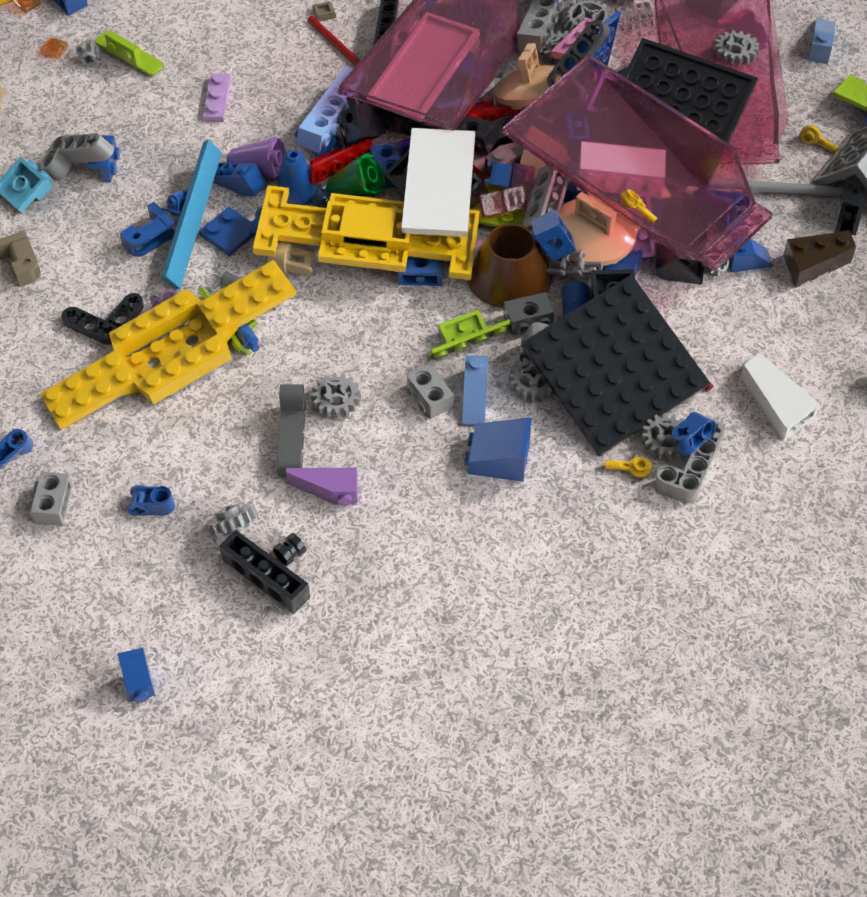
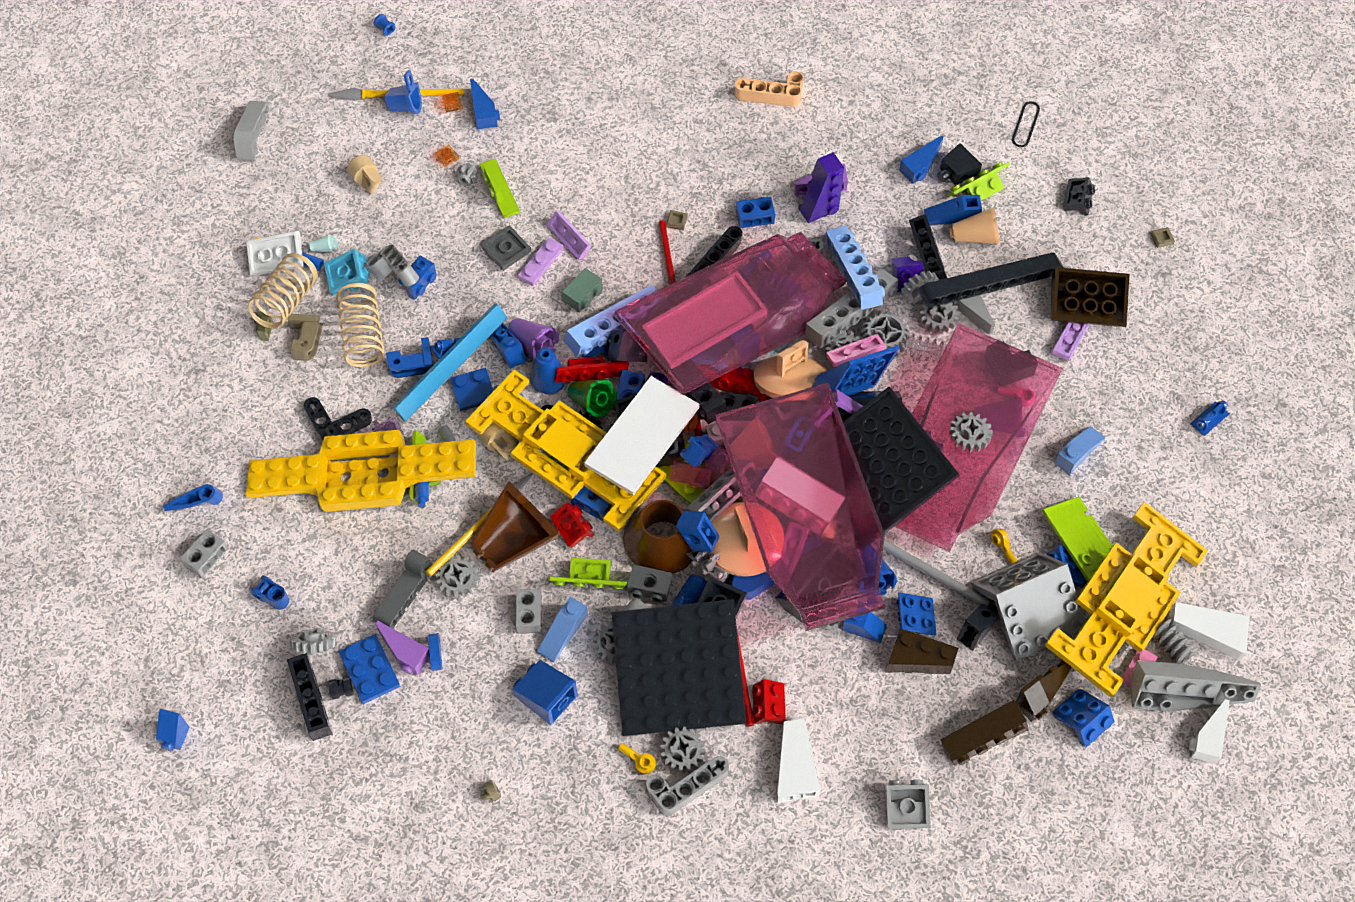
camera: 30 degrees right, 5 degrees up
(70, 194) = (366, 327): none -> tan piece
(174, 99) = (506, 247): none -> dark grey plate
(229, 63) = (569, 235): none -> lavender plate
(277, 102) = (582, 290): none -> sand green brick
(307, 518) = (369, 668): none -> blue plate
(321, 197) = (560, 394): dark blue plate -> none
(331, 314) = (466, 536): none -> yellow piece
(365, 327) = (512, 530): none -> reddish brown cone
(365, 472) = (435, 651): none -> blue beam
(415, 300) = (571, 524): none -> red bracket
(512, 563) = (491, 791): none -> dark tan tile
(575, 49) = (821, 374): dark grey beam -> none
(632, 200) = (782, 532): yellow plate -> none
(693, 433) = (698, 758): blue piece -> none
(713, 359) = (769, 702): none -> red bracket
(785, 226) = (916, 613): none -> blue hinge

